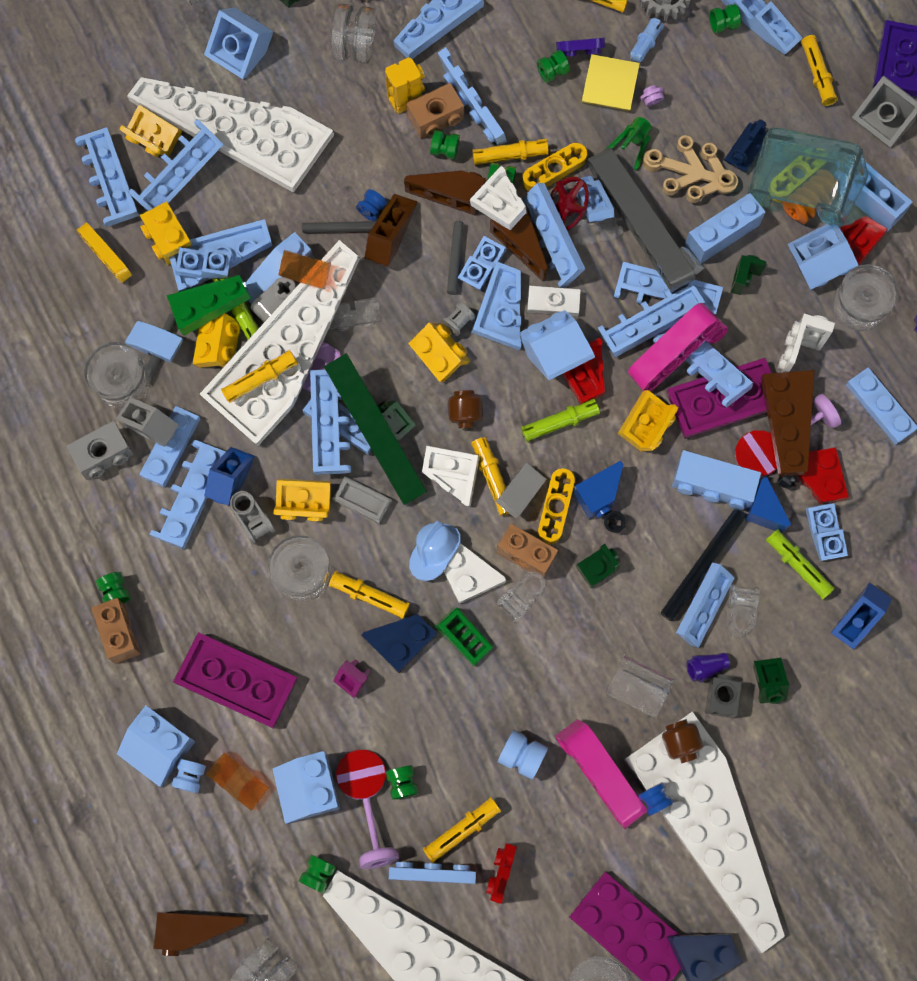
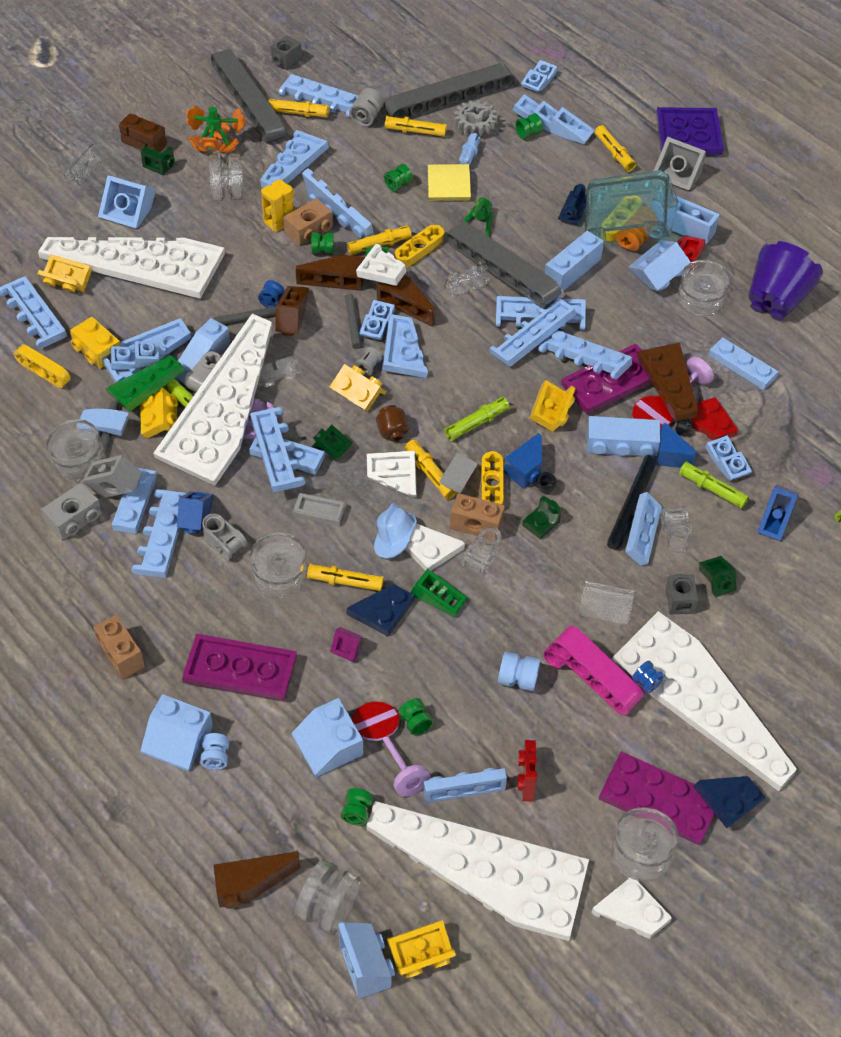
camera: 15 degrees left, 20 degrees down
(112, 587) = (105, 609): green wheel -> none
(180, 169) = (98, 293): light blue hinge -> none
(237, 781) = (261, 750): clear orange slope -> none
(256, 378) = (202, 428): yellow pin -> none
(303, 498) = (266, 514): yellow bracket -> none
(304, 269) = (227, 338): clear orange slope -> none
(375, 429) = (319, 447): dark green tile -> none
(488, 809) = (500, 723): yellow pin -> none
(553, 234) = (434, 288): light blue hinge -> none
(553, 300) = (446, 337): white plate -> none
(556, 345) = (457, 360): light blue slope -> none
(568, 202) = (438, 264): dark red wheel -> none
(587, 379) = (486, 379): red wing -> none
(592, 46) = (418, 159): dark purple plate -> none
(599, 205) = (459, 258): light blue hinge -> none
(652, 95) = (486, 184): lavender plate -> none
(676, 346) = (560, 342): dark pink beam -> none
(682, 741) = (657, 626): reddish brown head -> none
(693, 171) = (558, 232): tan plant -> none
(705, 666) = (657, 575): dark purple cone -> none
(744, 270) = (600, 287): dark green bracket -> none
(808, 332) = (667, 319): white bracket -> none

